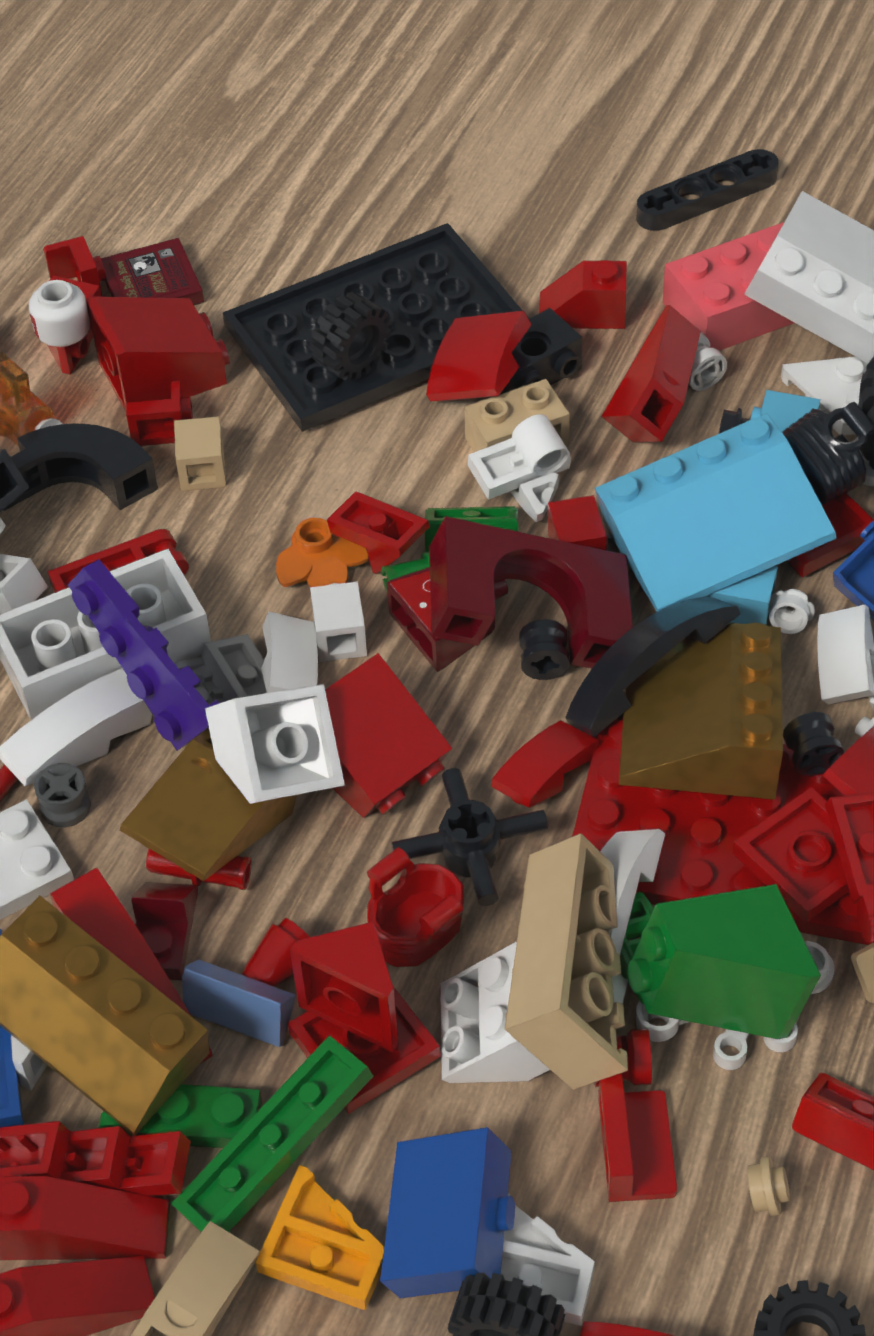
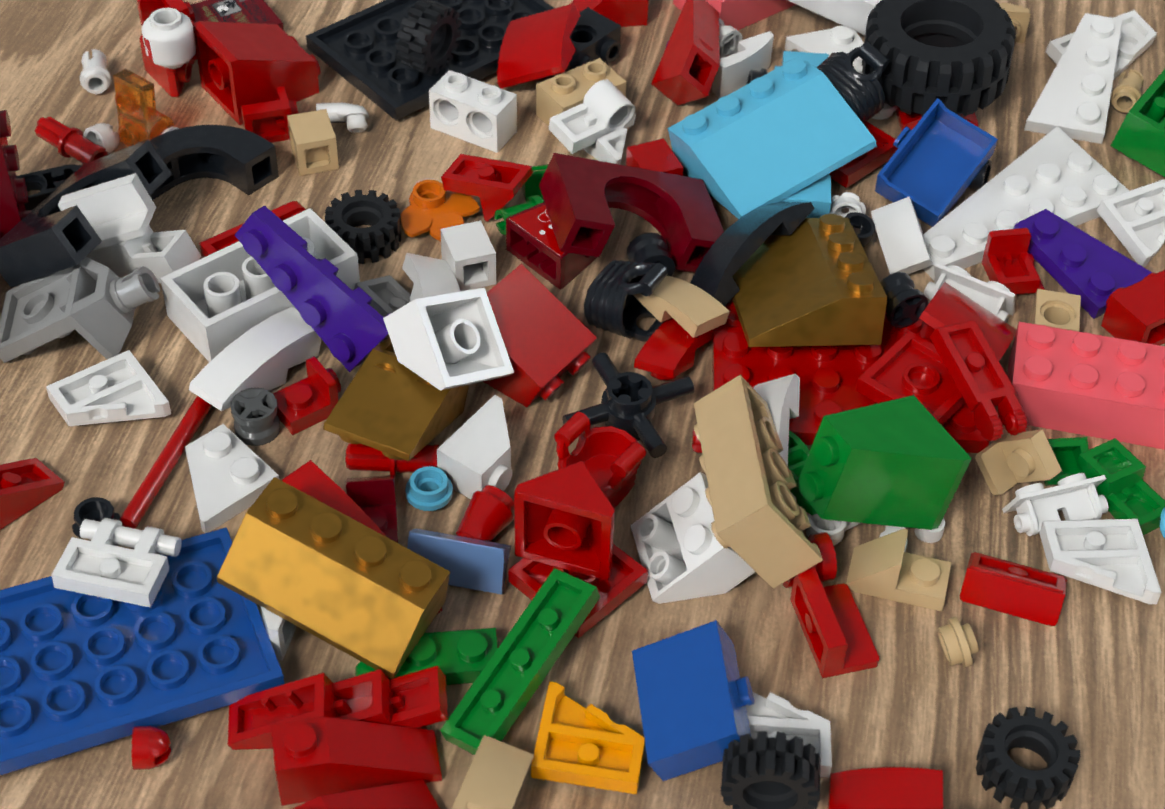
camera: 15 degrees left, 5 degrees down
(123, 780) = (308, 399): none -> red bracket
(224, 898) = (429, 489): none -> medium azure plate
(232, 588) = (369, 210): none -> black tyre
(244, 415) = (345, 112): none -> white arm
(291, 872) = (478, 451): none -> white slope
(388, 432) = (473, 111): none -> white brick
(497, 696) = (611, 299): none -> black piece
(560, 717) = (686, 304): none -> tan slope
(719, 1087) = (889, 573): none -> tan slope
(733, 389) = (734, 69): none -> white slope
(802, 626) = (865, 224): none -> black hinge

